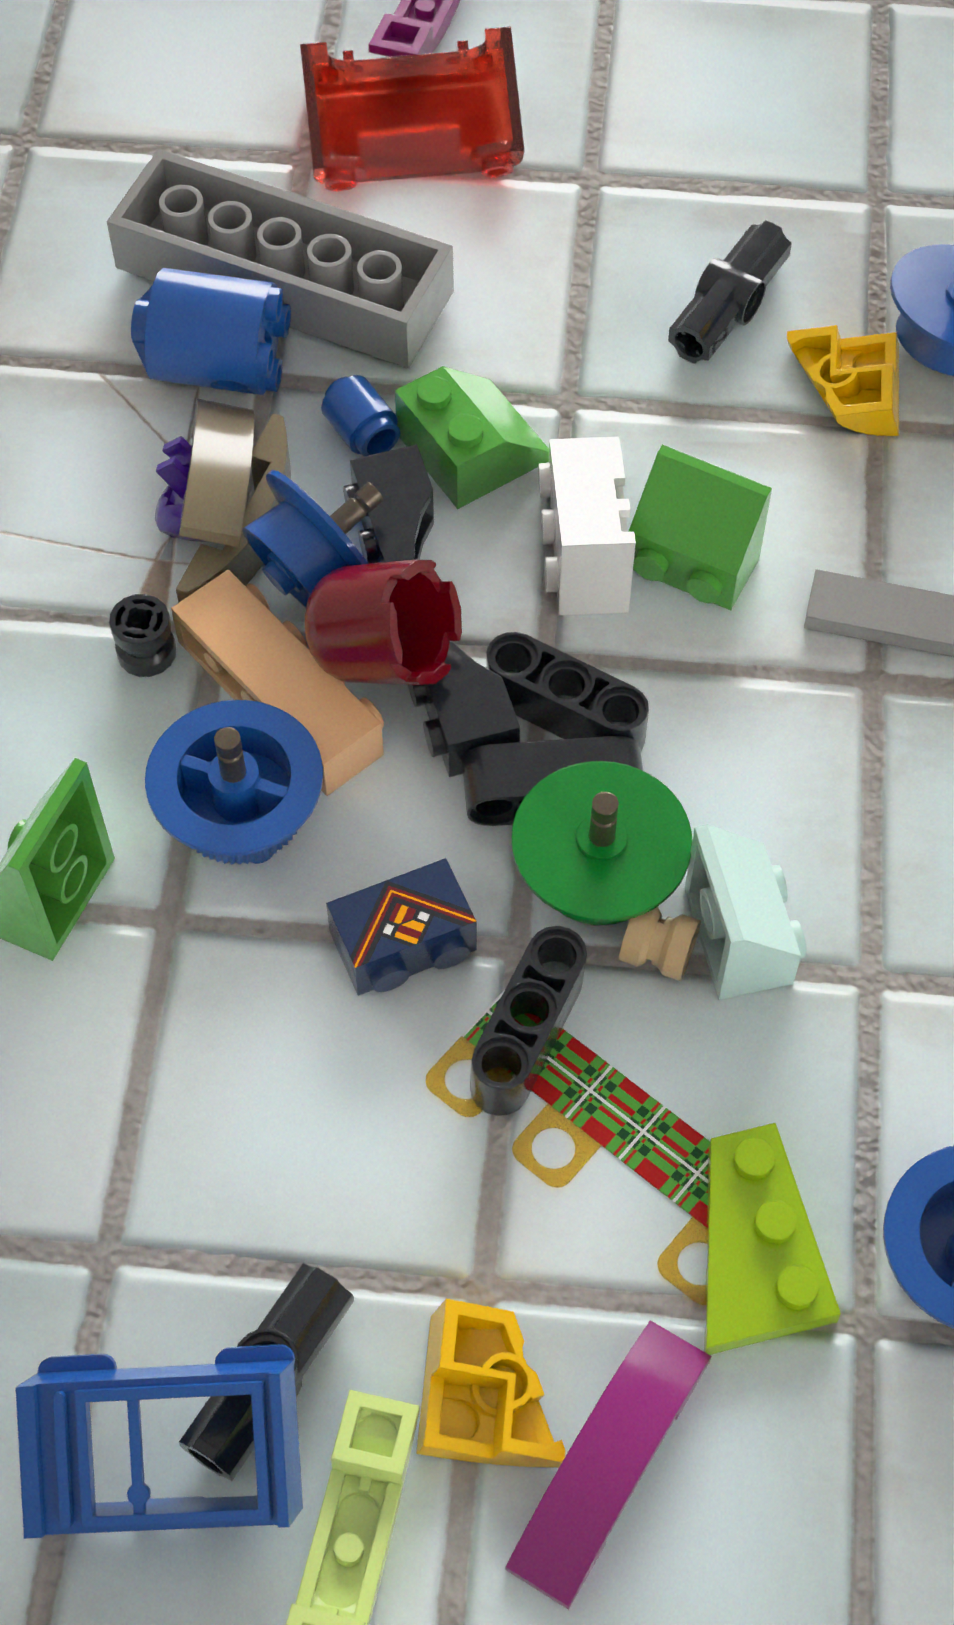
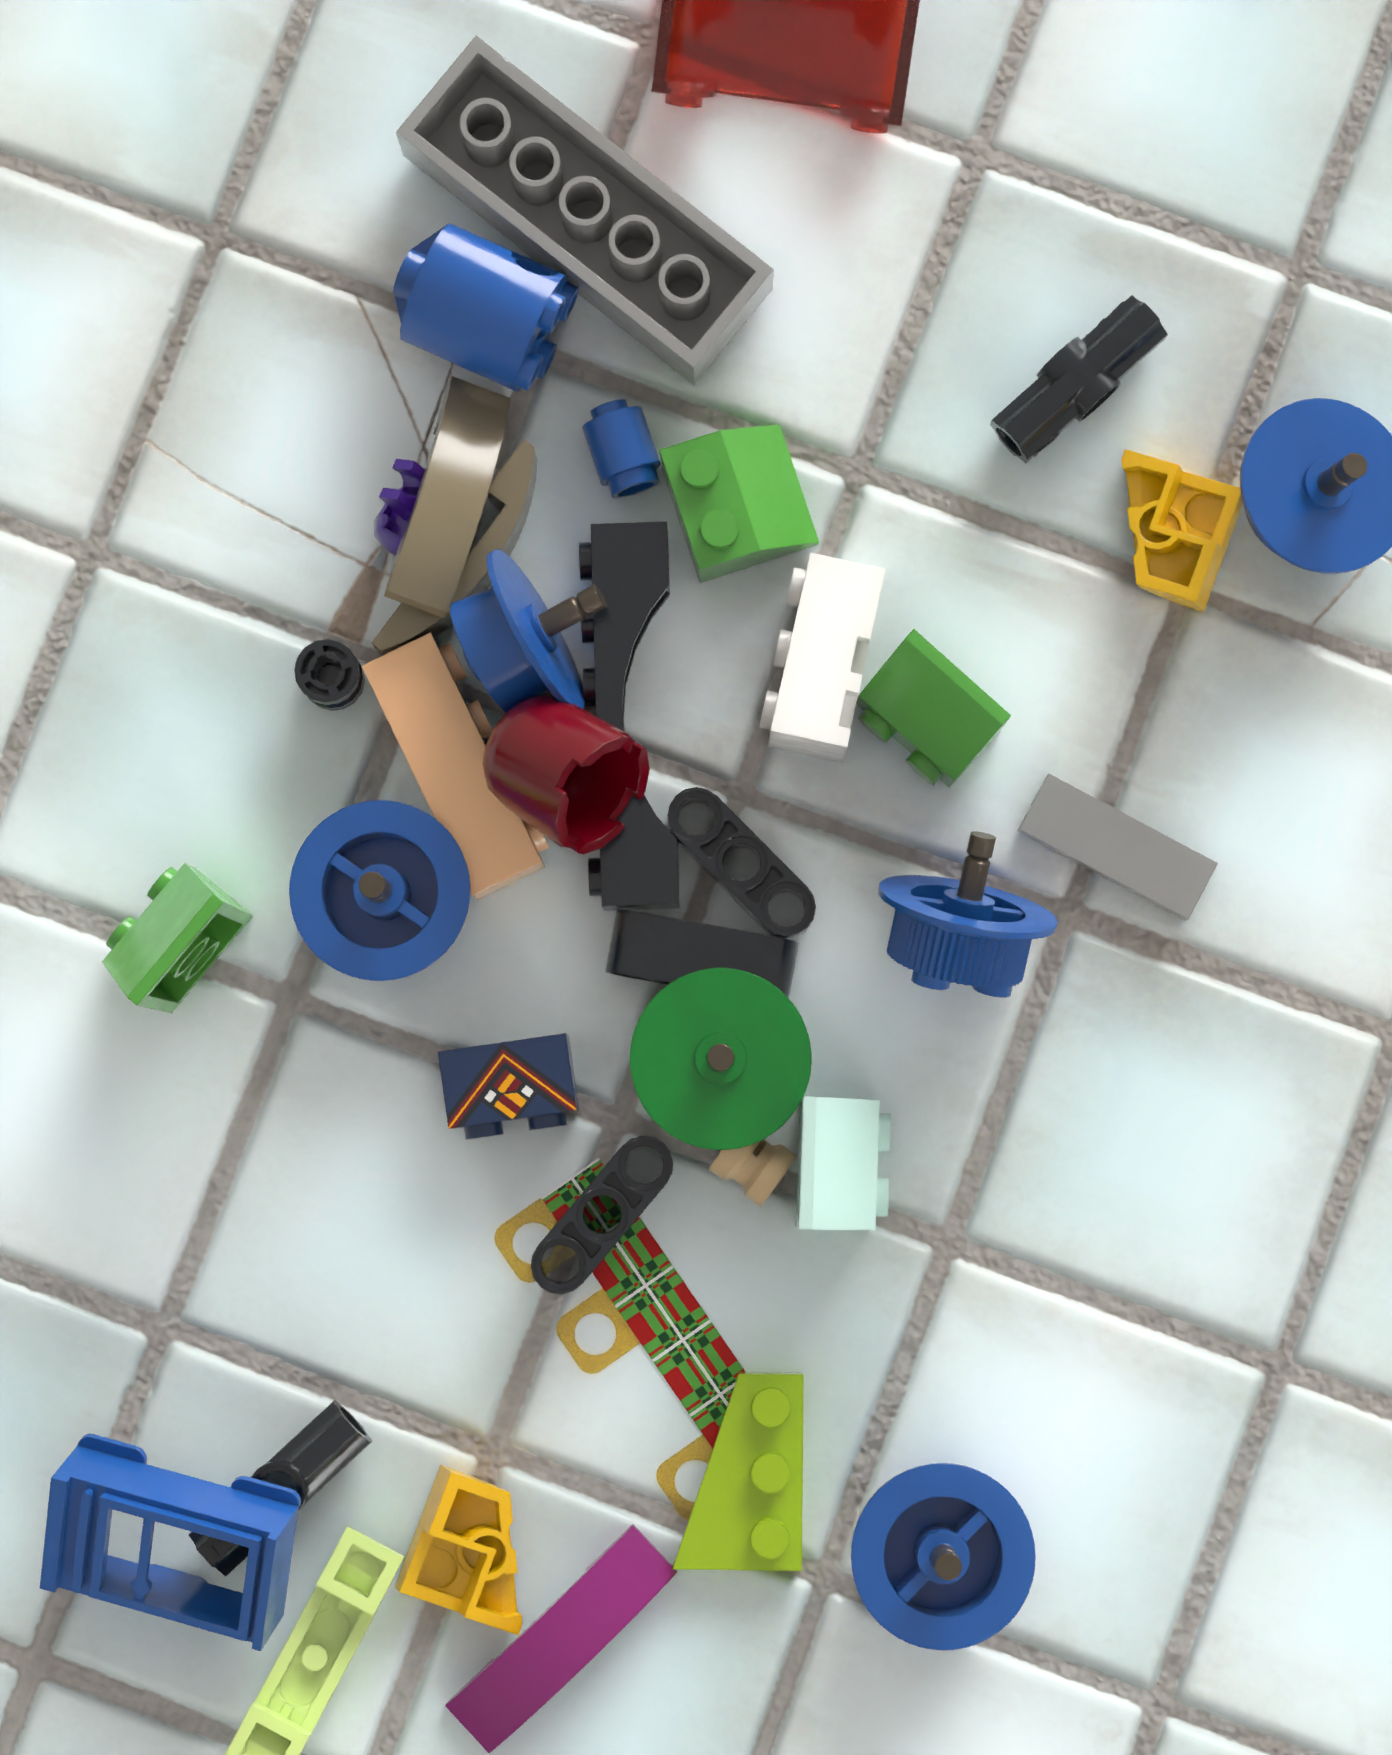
camera: 20 degrees right, 25 degrees up
(788, 678) = (962, 927): none -> blue piece

